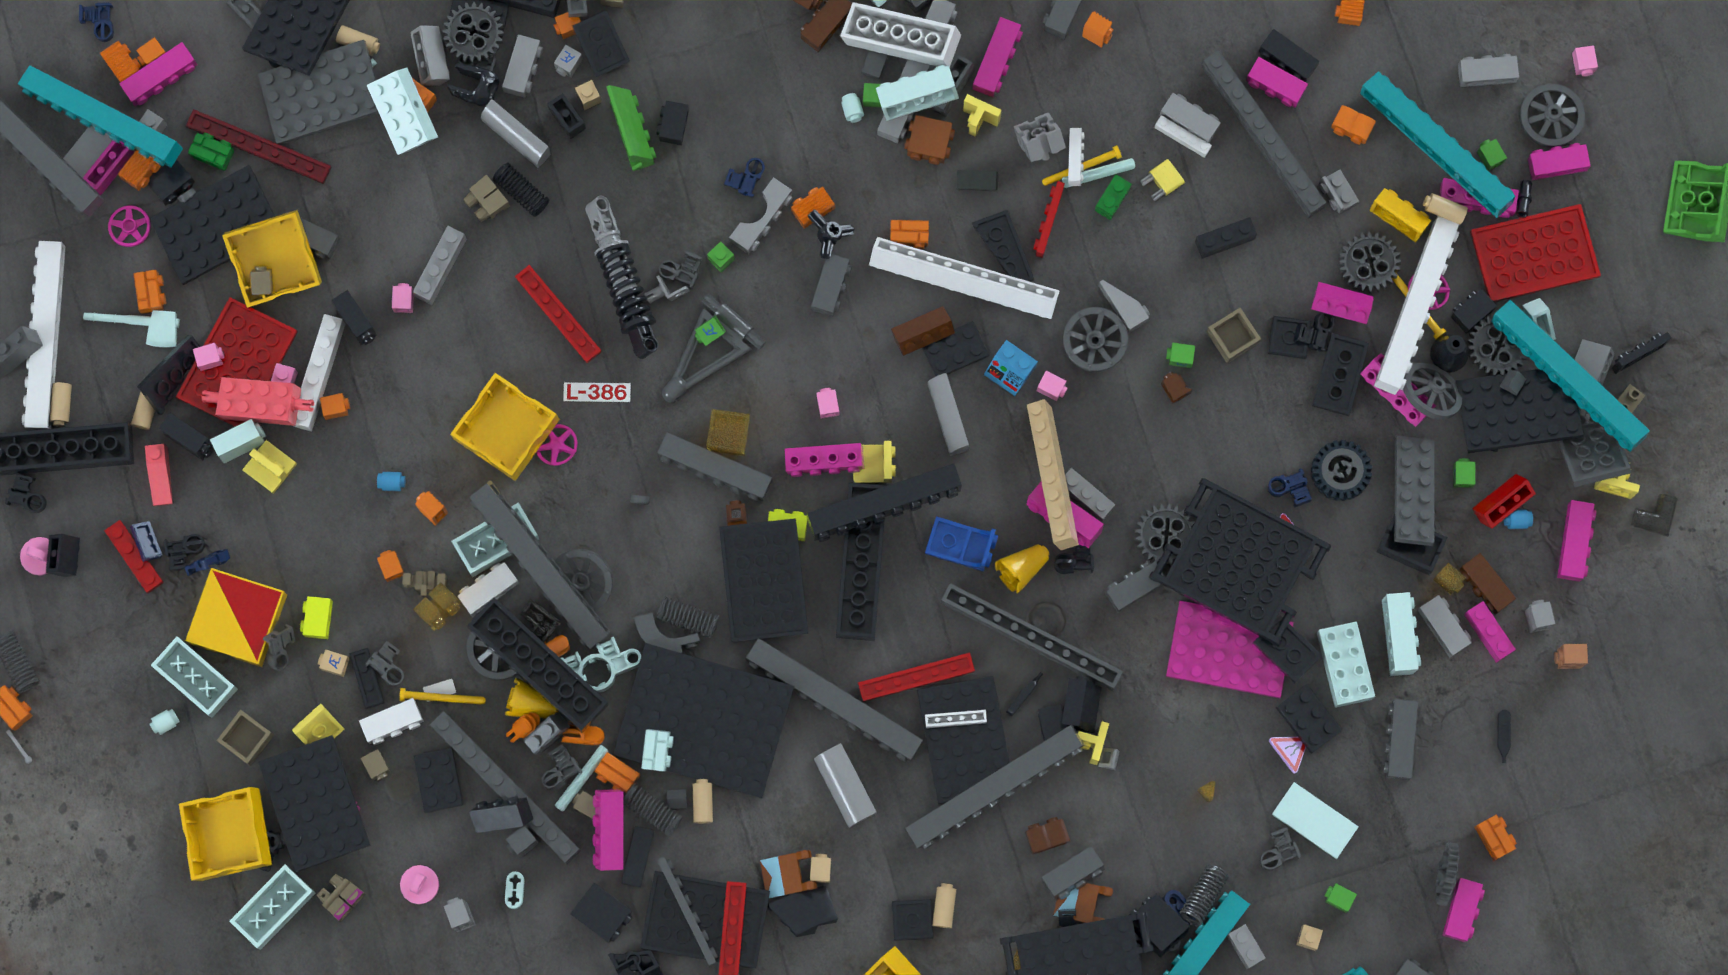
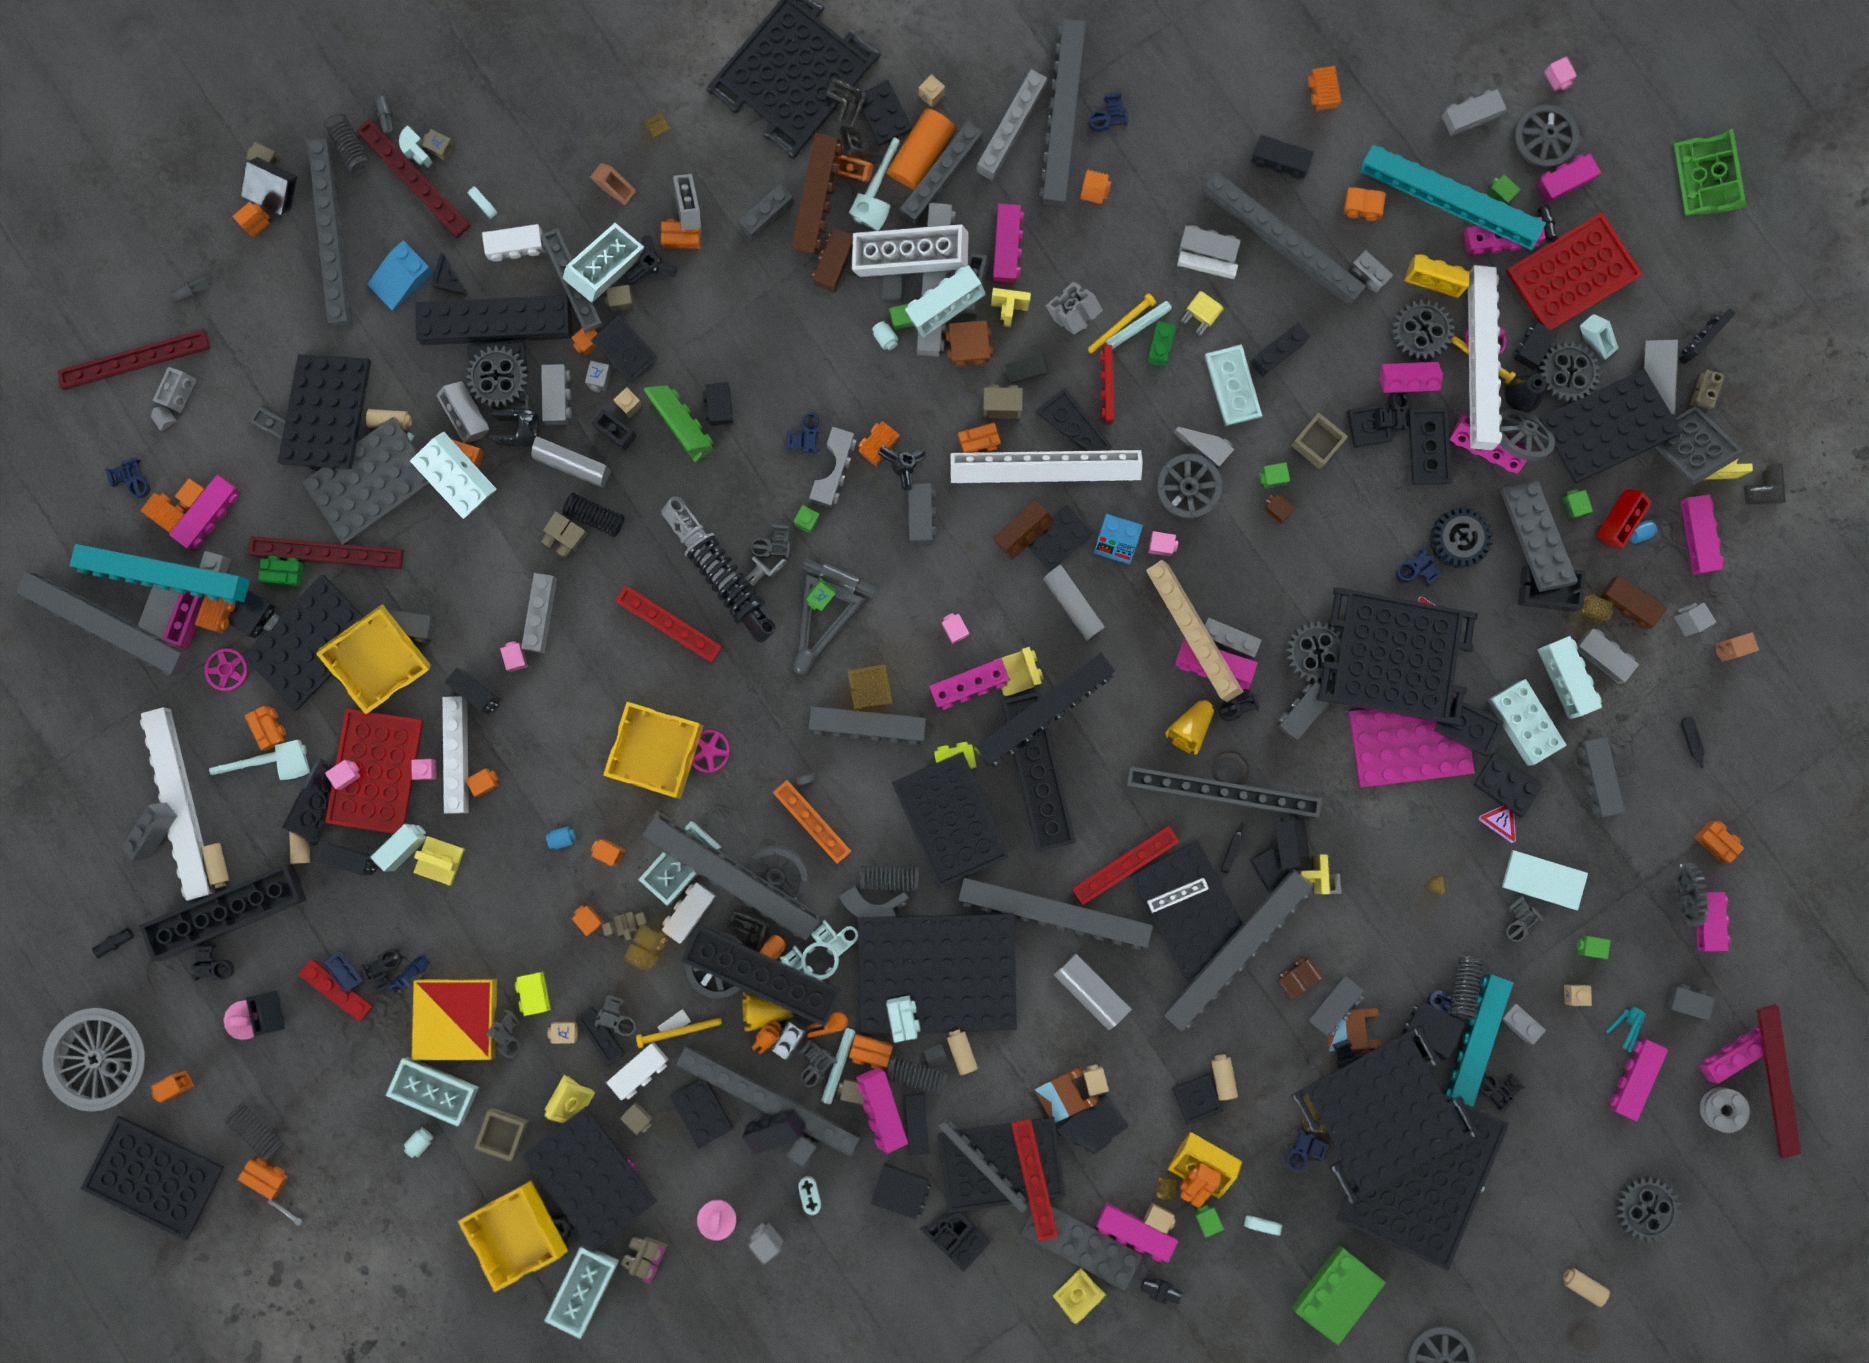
camera: 20 degrees left, 5 degrees up
(159, 474) = (334, 902): coral slope -> none
(258, 401) = (405, 803): coral brick -> none
(261, 280) = (371, 683): dark tan brick -> none
(597, 392) = (730, 687): white sticker -> none
(632, 541) = (812, 821): none -> orange plate
(736, 513) = (903, 763): reddish brown window -> none
(942, 204) = (1002, 402): none -> dark tan piece
(961, 544) = (1128, 723): blue bracket -> none
(1076, 157) = (1113, 316): white piece -> none
(1170, 258) = (1233, 385): none -> light aqua tile
(1276, 82) = (1279, 185): dark pink brick -> none
(1445, 208) = (1479, 256): tan brick -> none
(1489, 632) = (1650, 648): dark pink brick -> none
(1513, 382) = (1597, 402): dark grey slope -> none
(1570, 376) = (1652, 380): teal brick -> none

